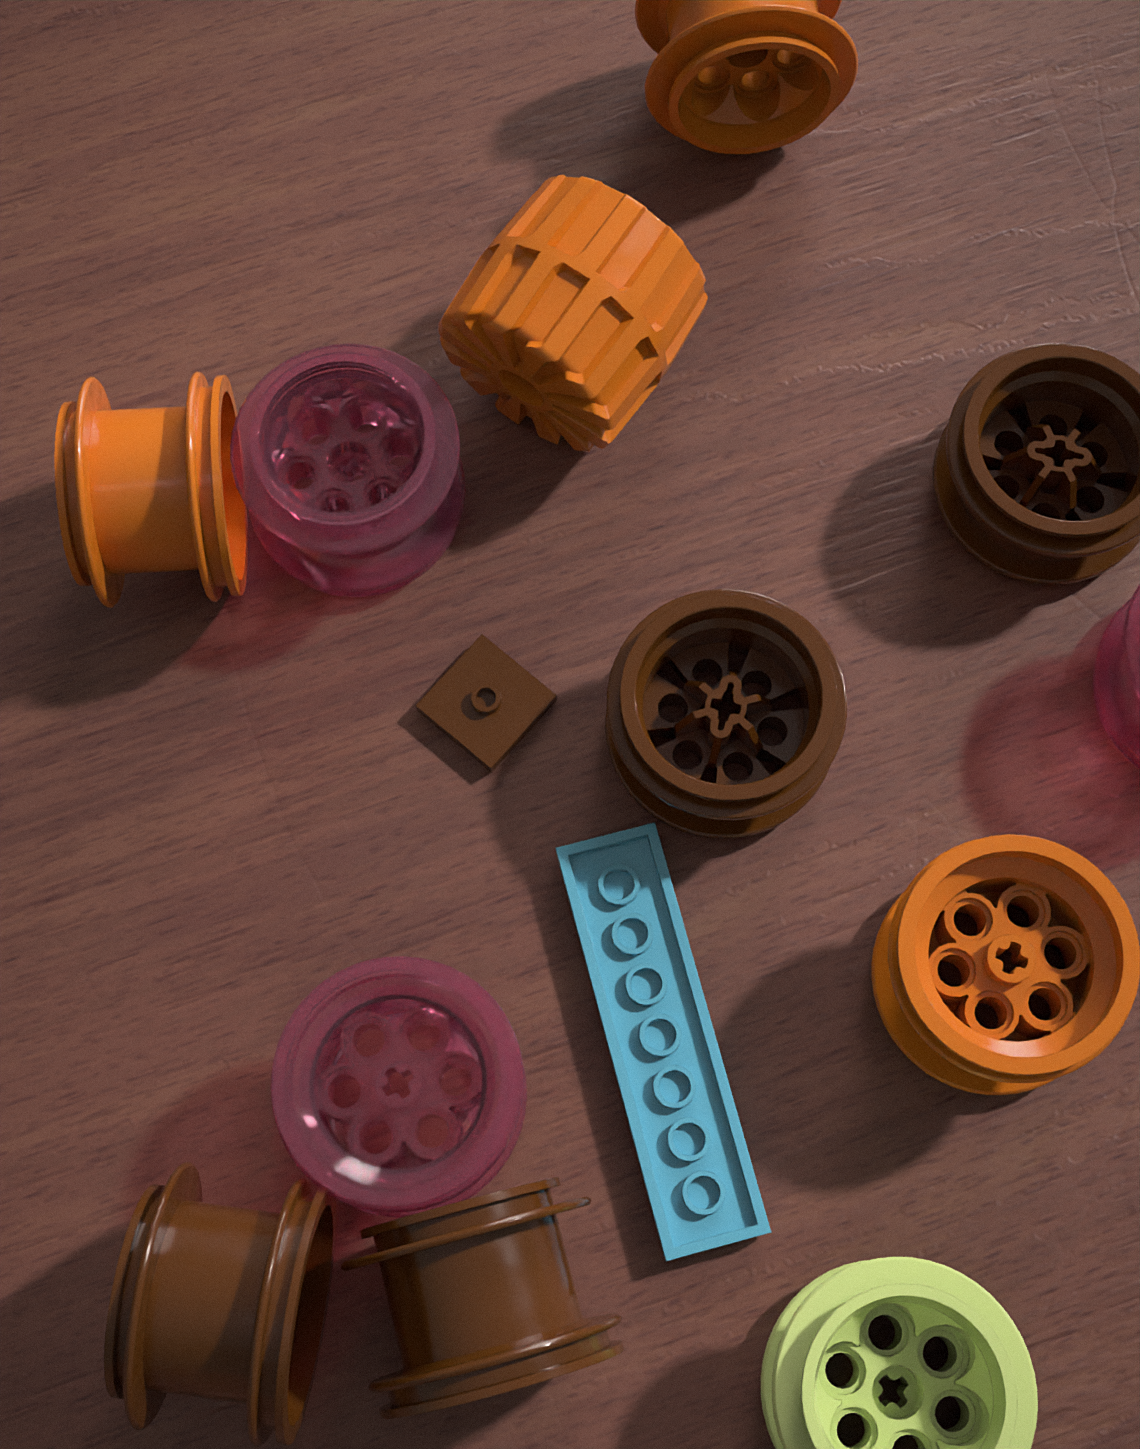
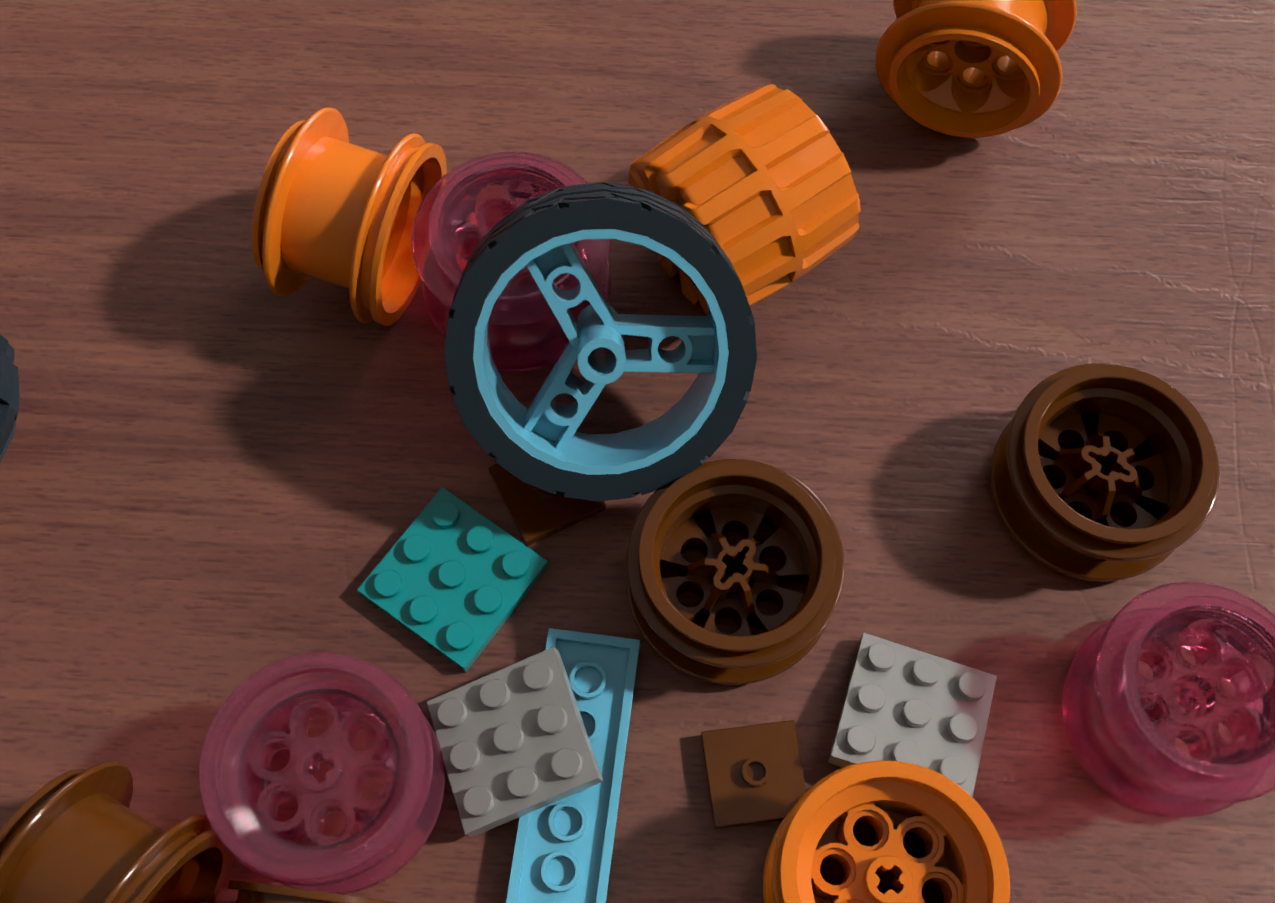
camera: 20 degrees right, 5 degrees down
(429, 836) = (453, 579): none -> teal plate
(474, 652) = (542, 441): none -> wheel
(572, 977) = (513, 742): none -> light grey plate
(823, 910) = (753, 773): none -> reddish brown plate
(957, 784) = (913, 711): none -> light grey plate

